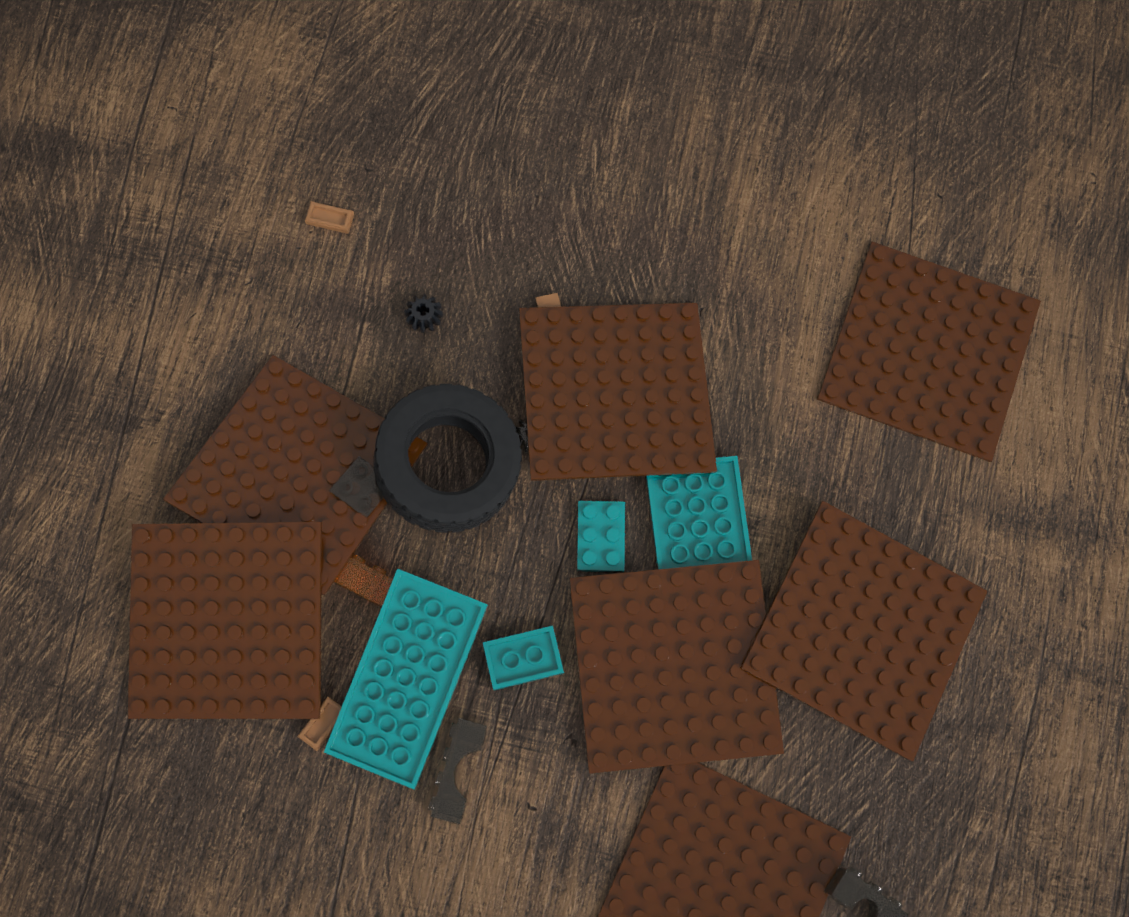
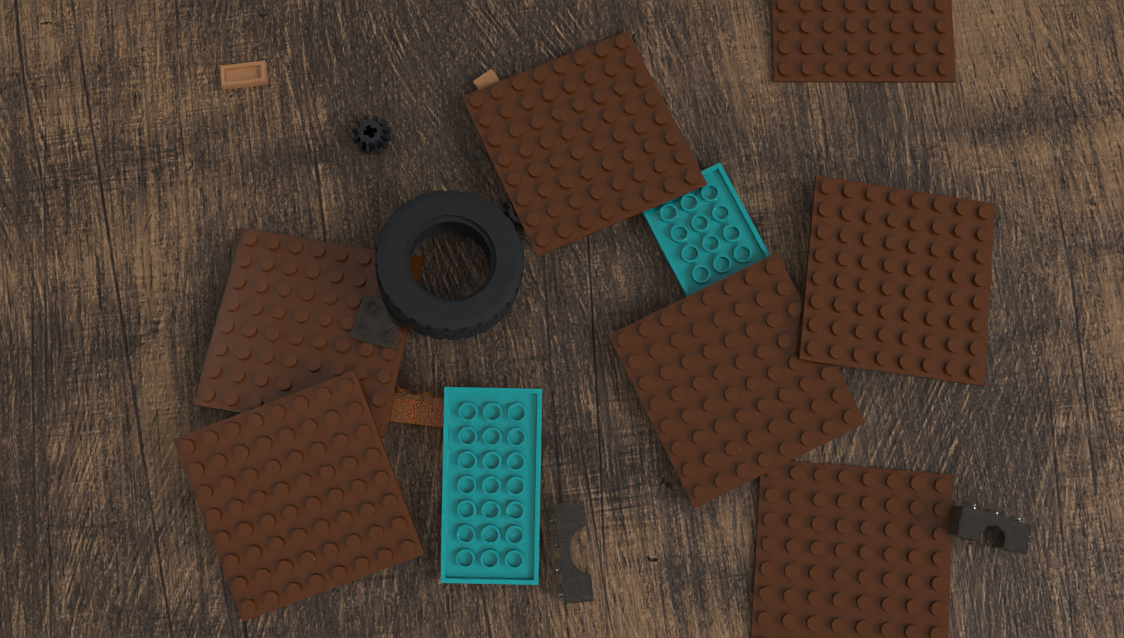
camera: 15 degrees left, 5 degrees up
(318, 730) = (427, 565): medium nougat tile -> none
(523, 658) = (592, 425): teal plate -> none
(601, 536) = (621, 285): teal plate -> none

